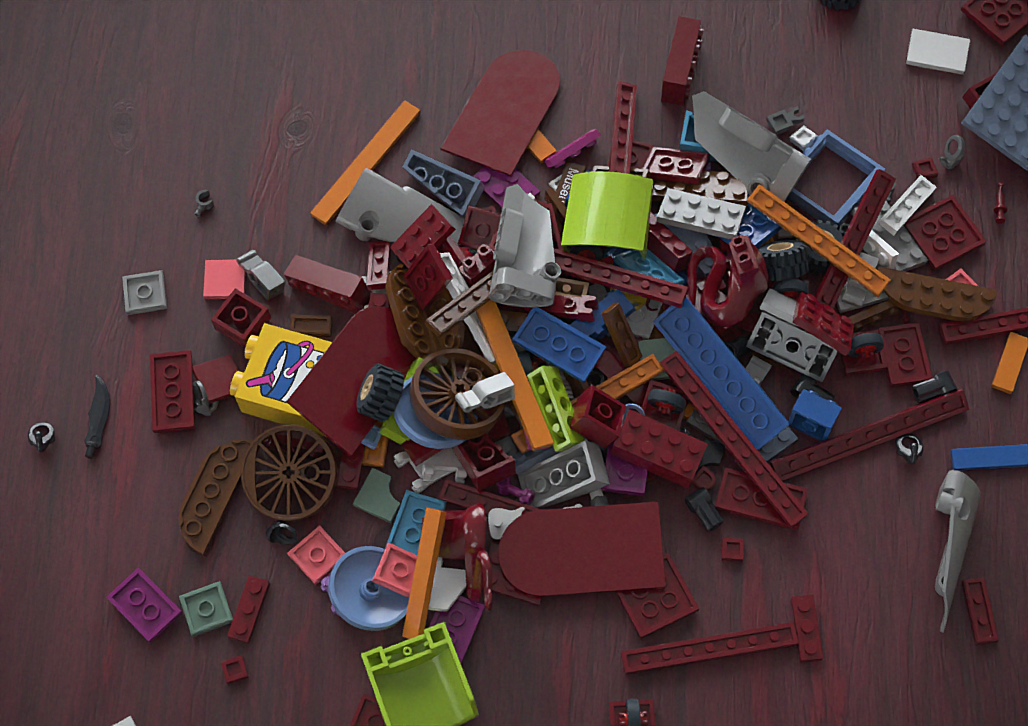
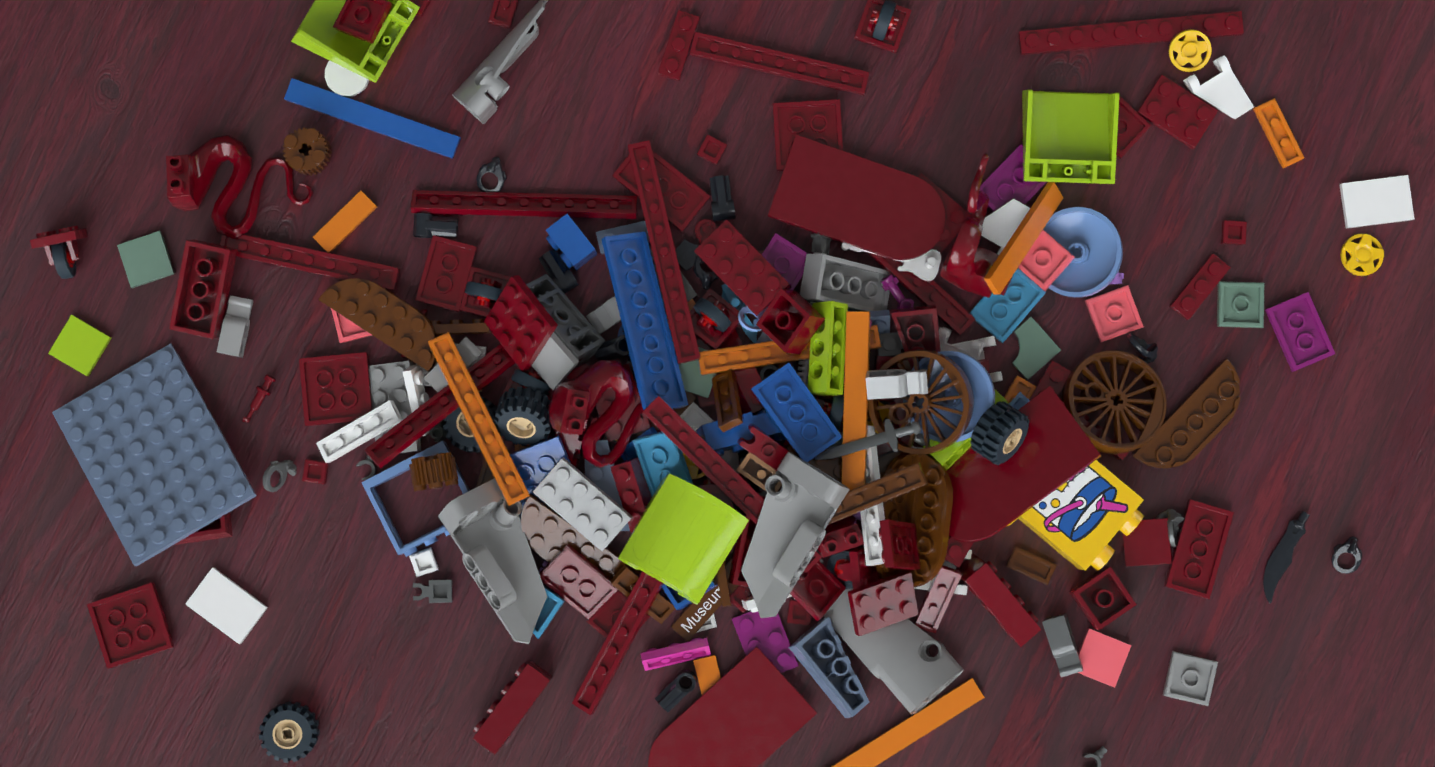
camera: 160 degrees left, 20 degrees up
(108, 698) = (1362, 254): none -> yellow wheel
(472, 353) = (890, 435): none -> dark grey sword
(559, 125) = (675, 692): none -> black piece
(832, 190) = (433, 471): none -> reddish brown brick

